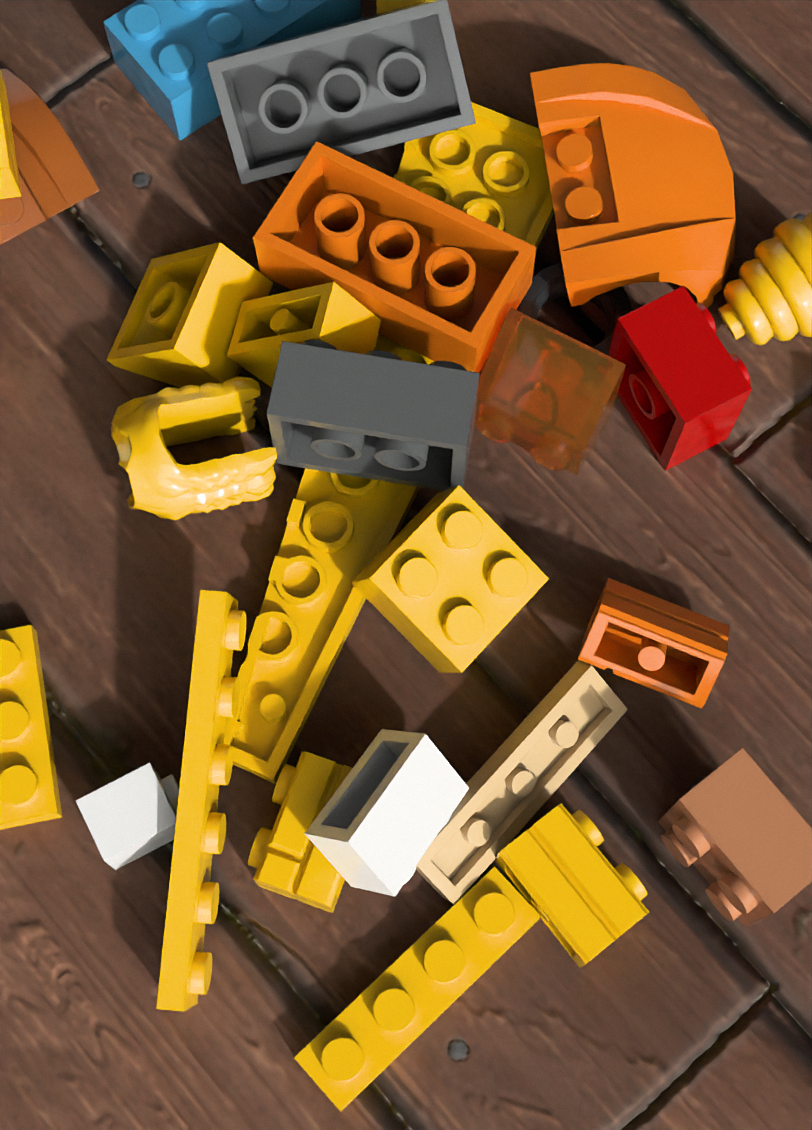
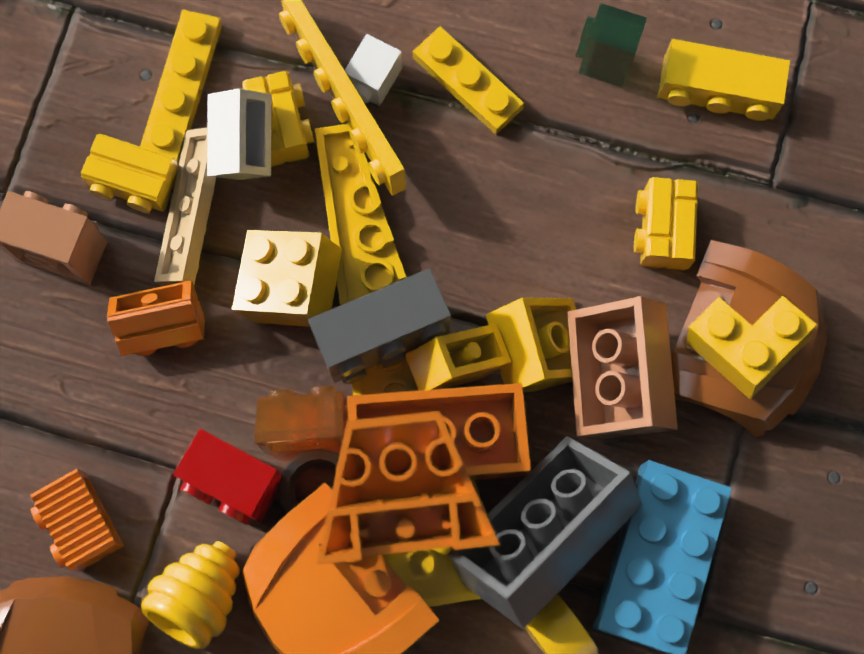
camera: 145 degrees right, 5 degrees up
(120, 213) = (622, 369): none -> nougat brick
(186, 415) = (482, 229): yellow piece -> none
(485, 185) = (401, 492): none -> orange wedge

